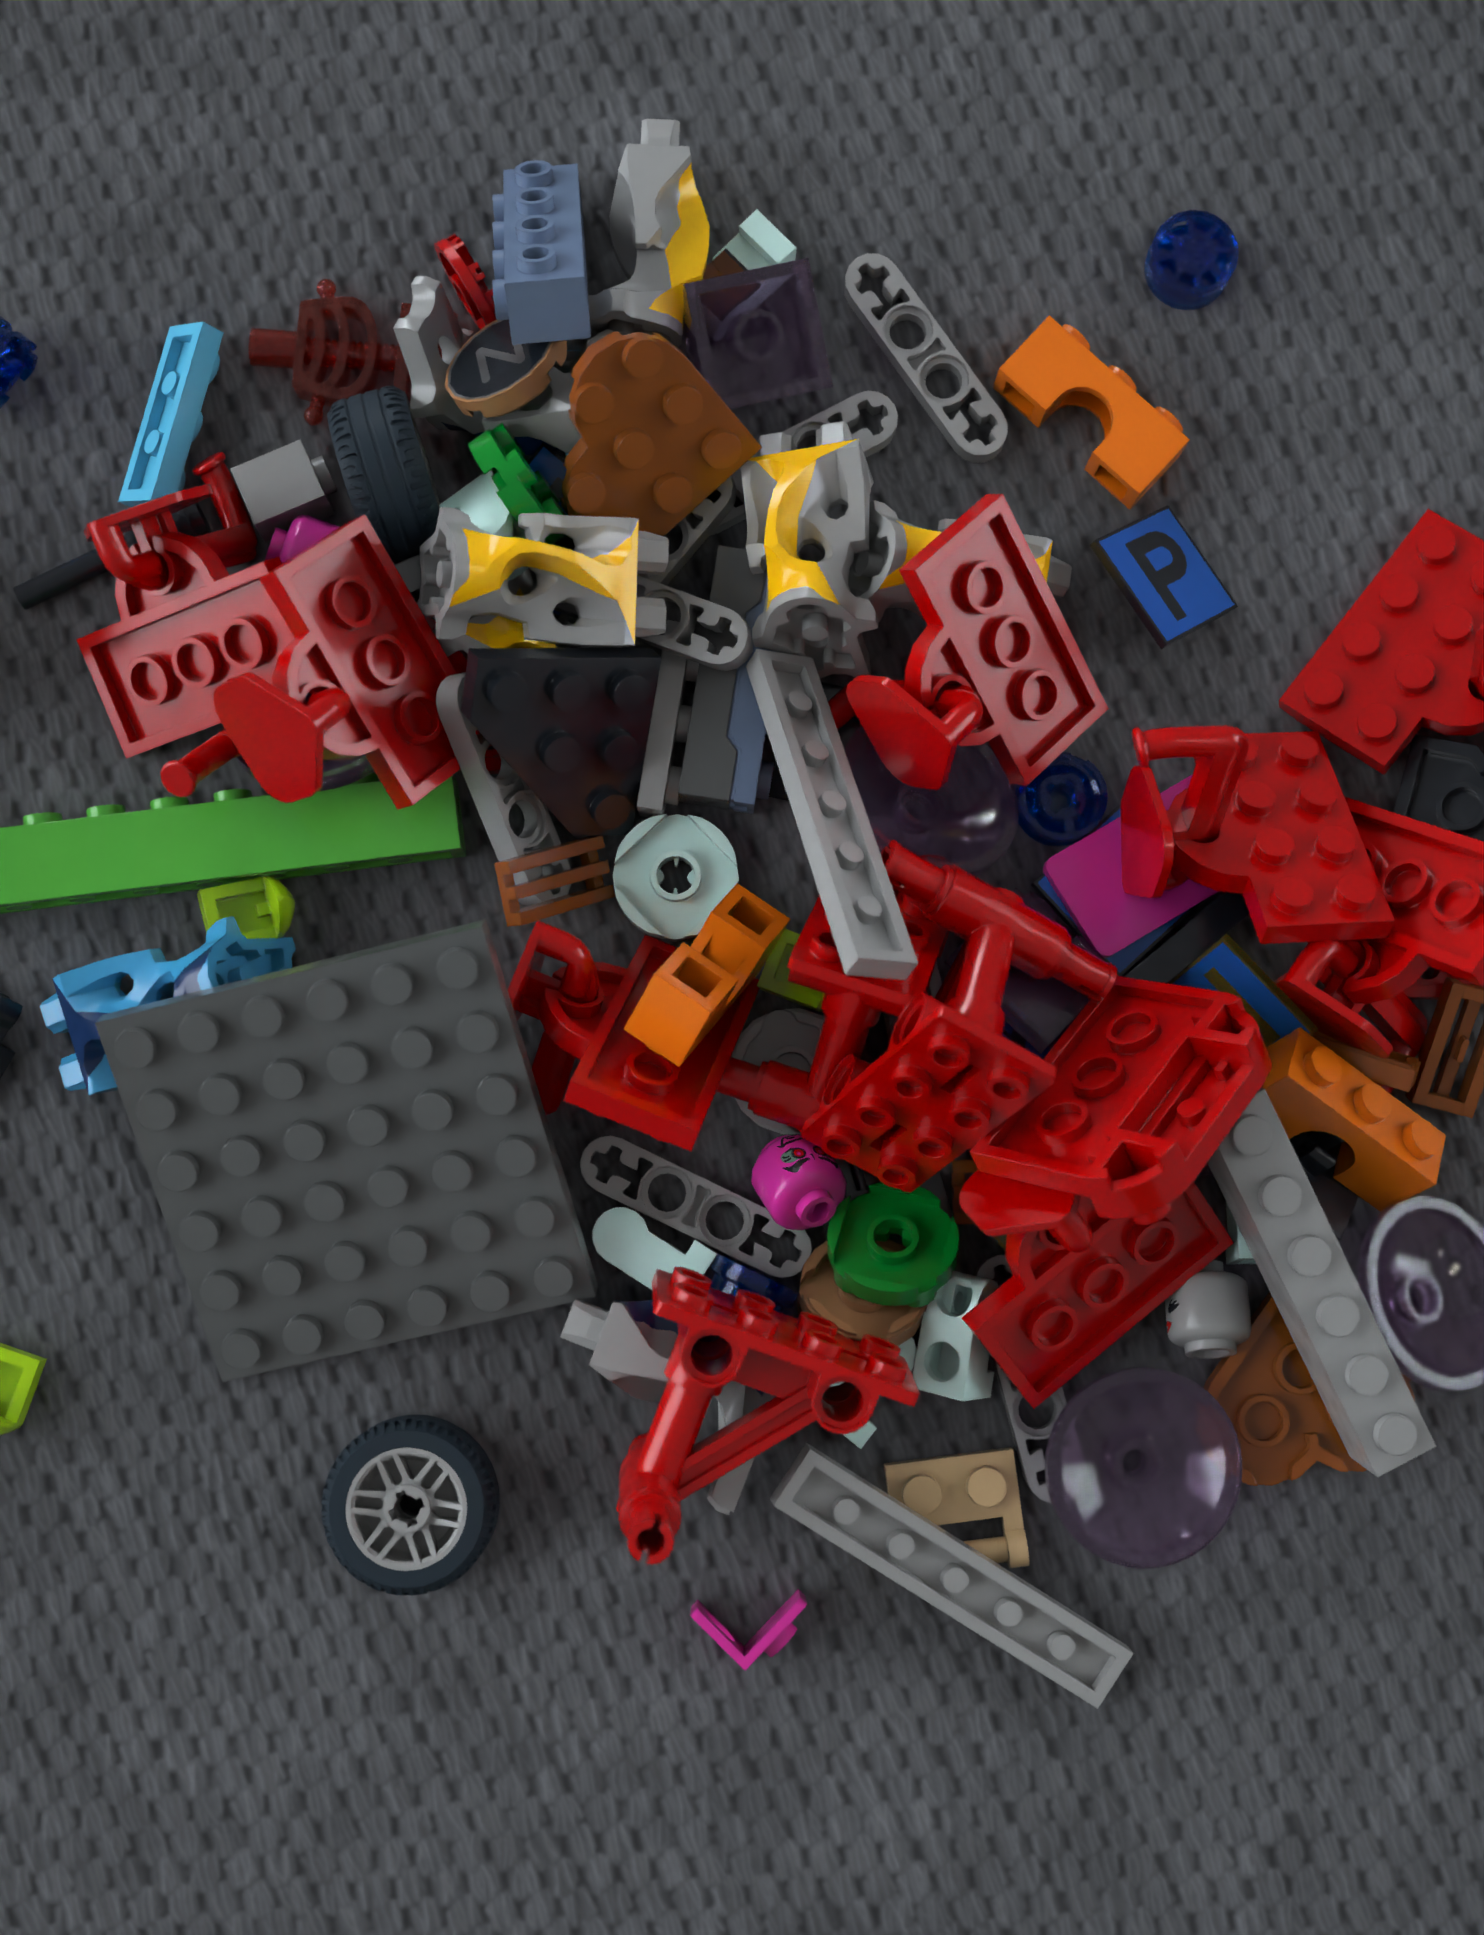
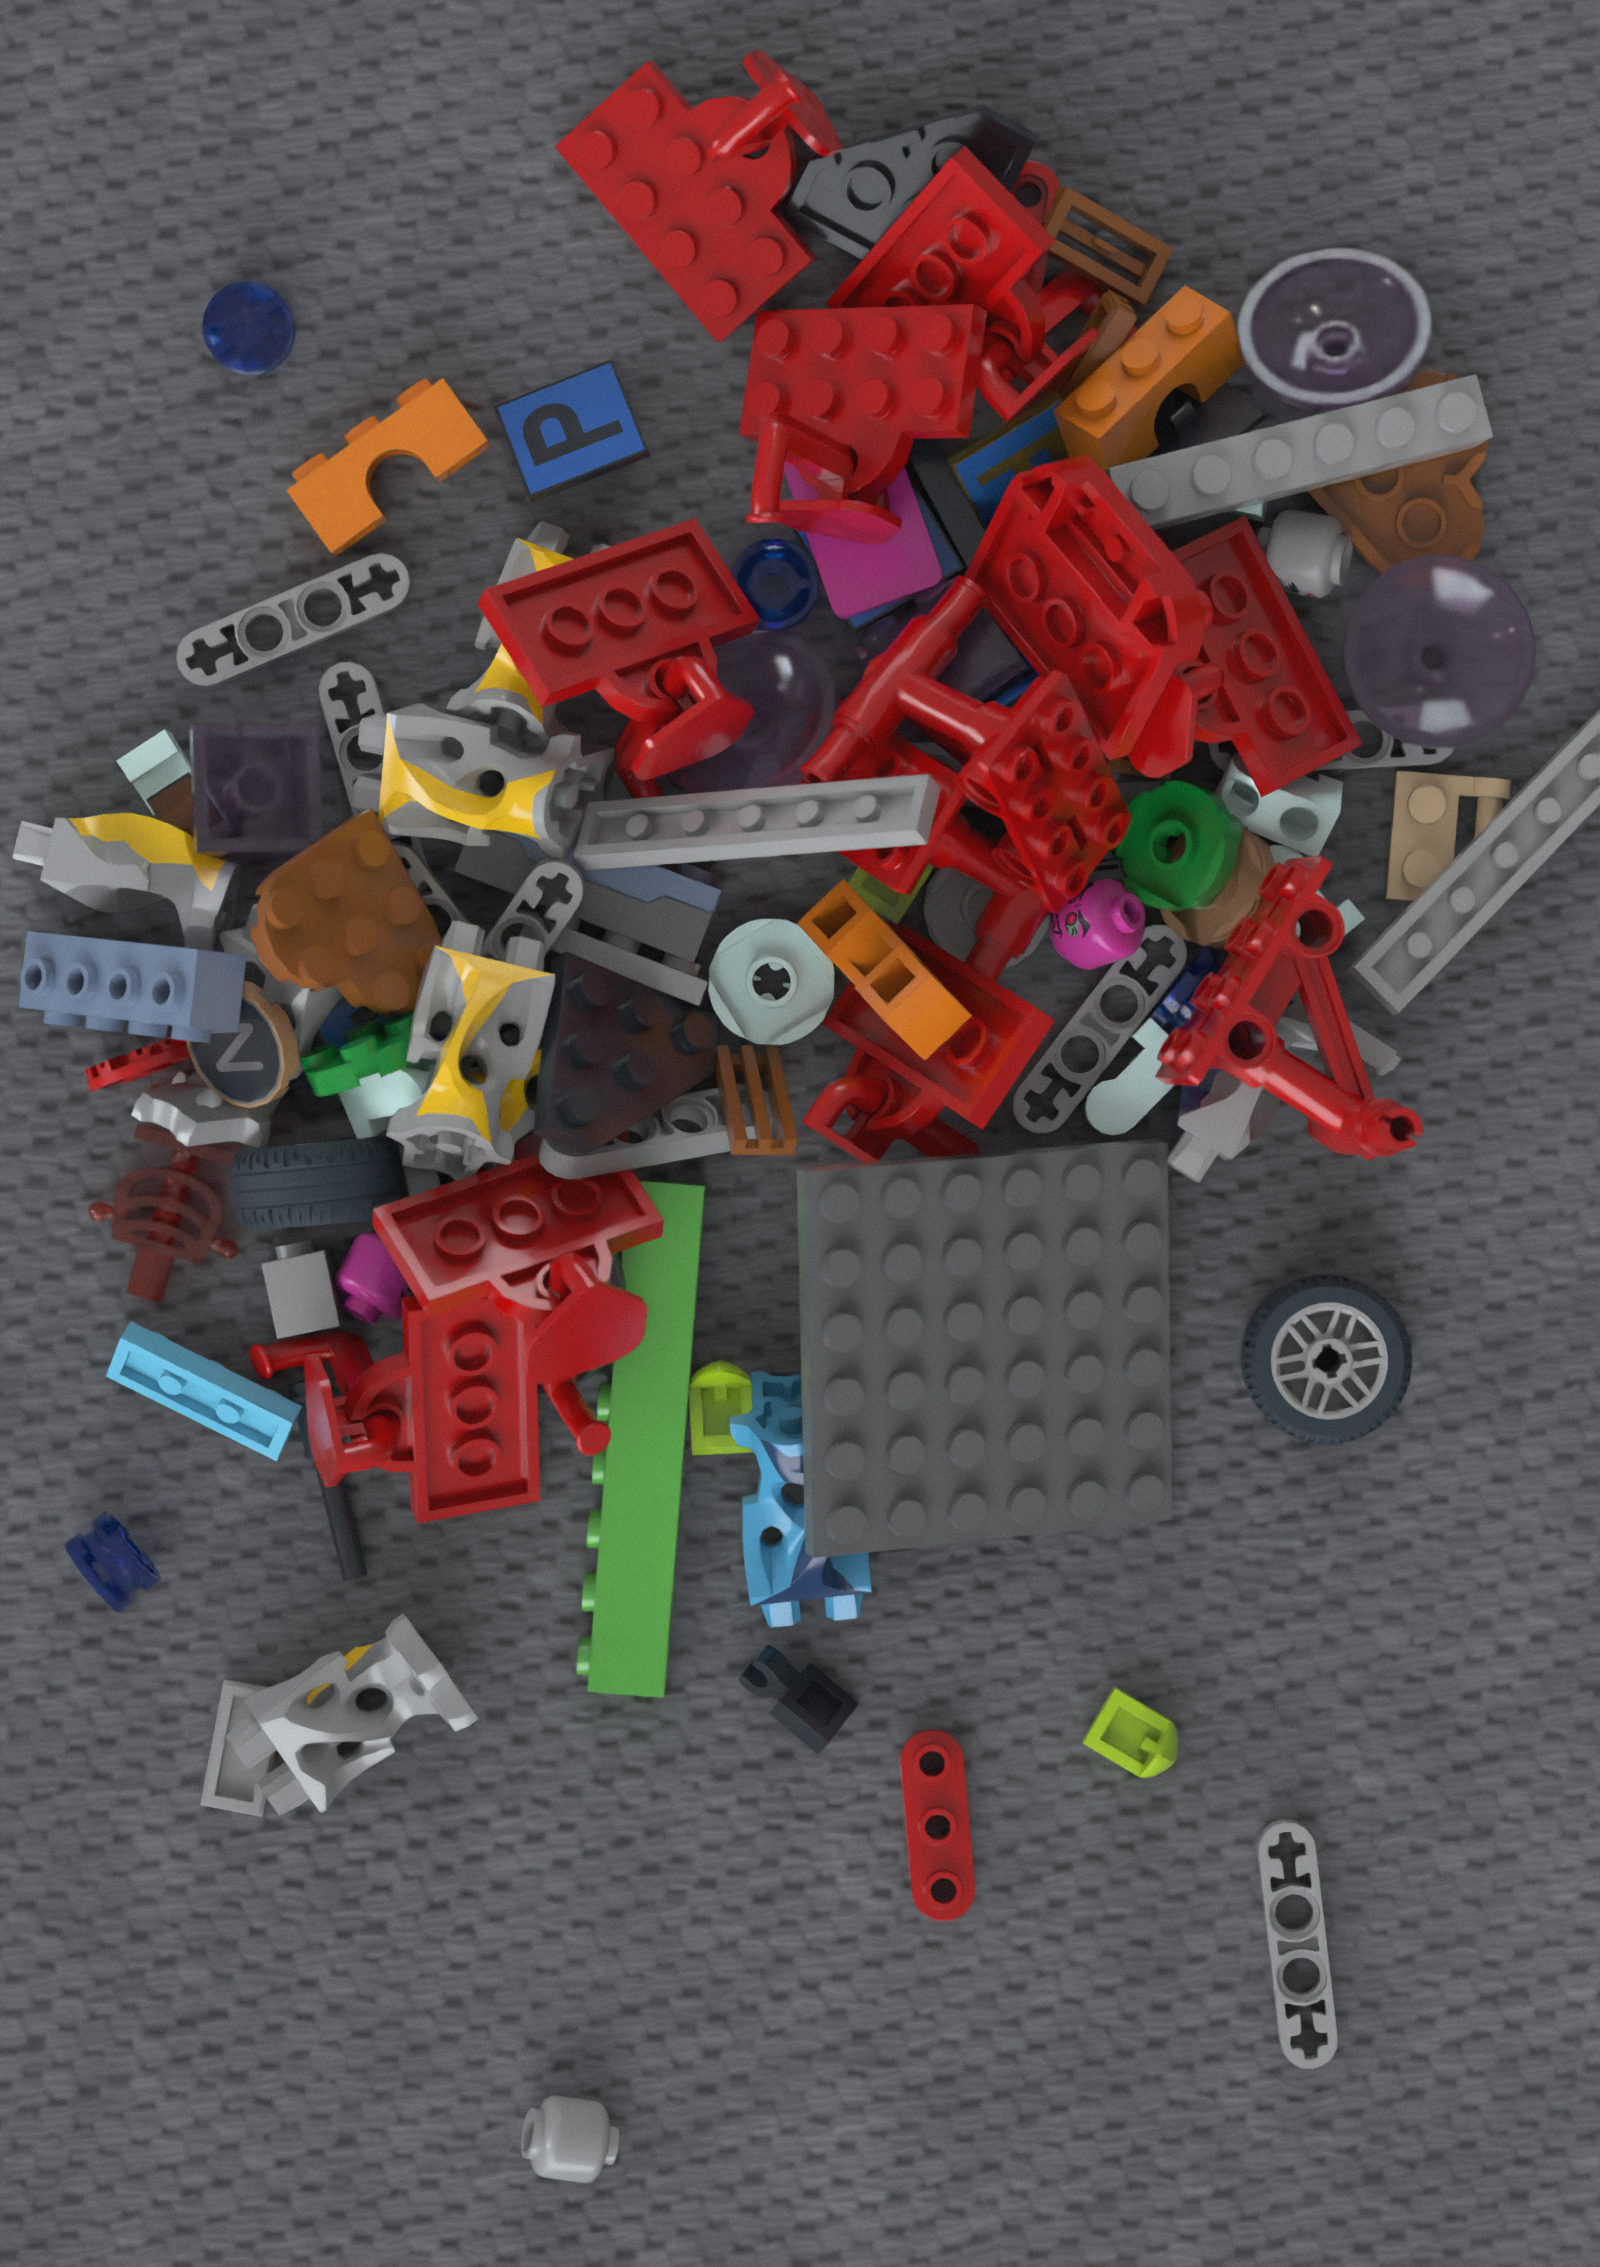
camera: 70 degrees left, 5 degrees up
(768, 1639) = (1525, 1044): dark pink bracket -> none

